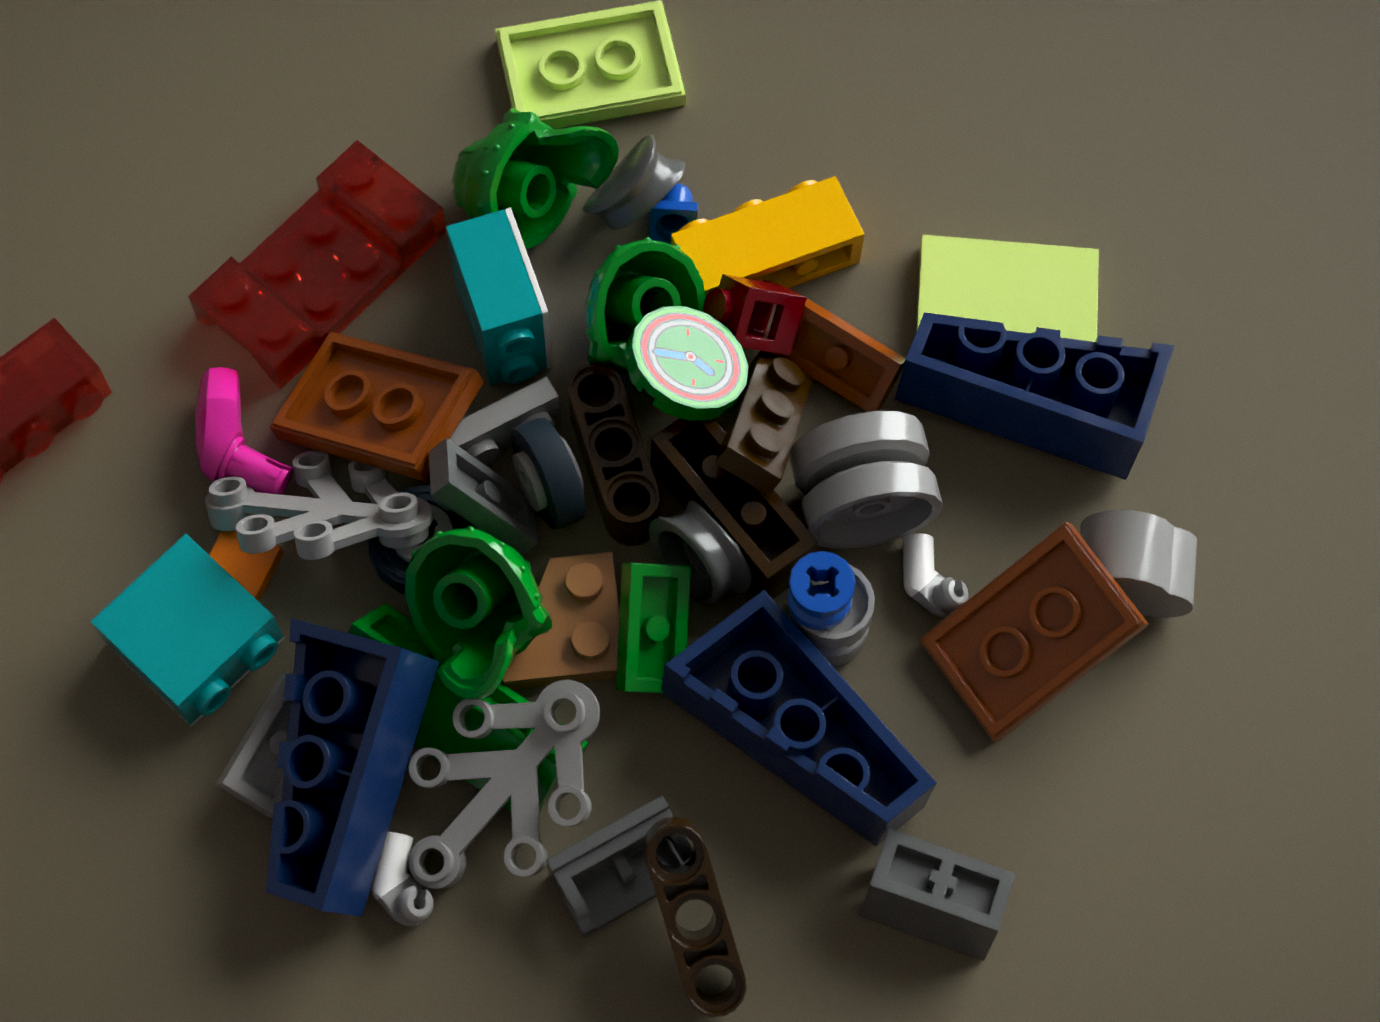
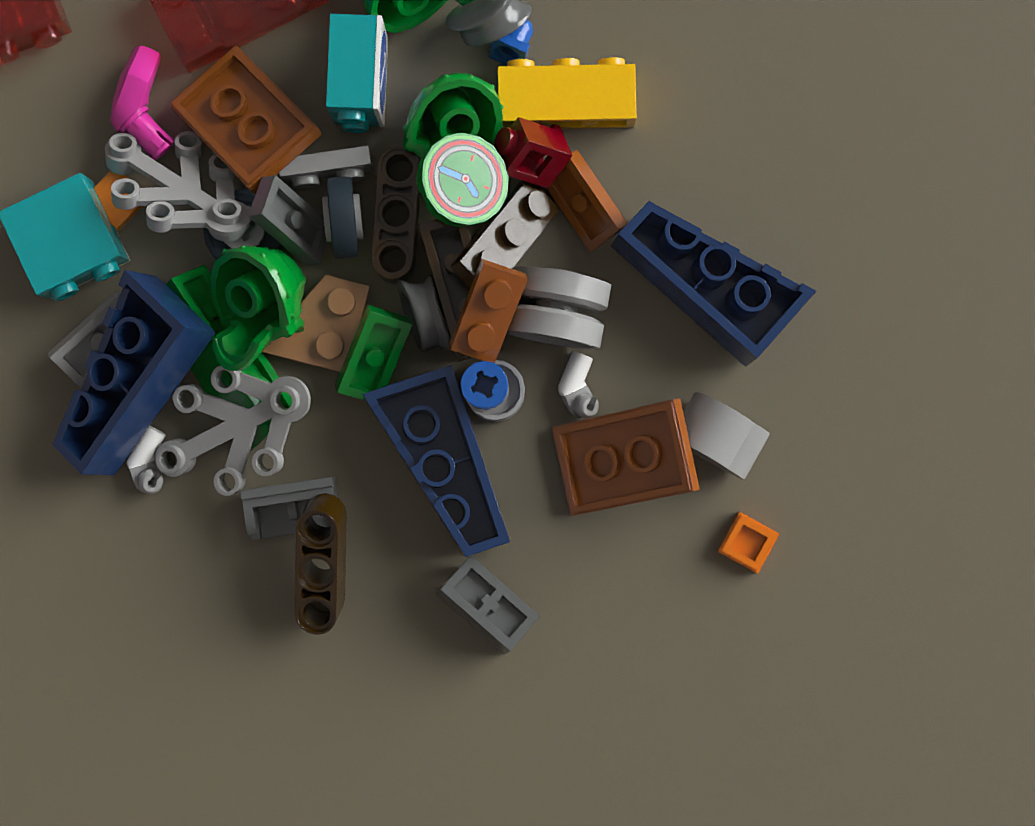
camera: 25 degrees right, 20 degrees up
(786, 496) = (488, 311): none -> dark orange plate
(1010, 284) = (727, 195): yellowish green tile -> none
(1232, 691) = (748, 542): none -> orange tile

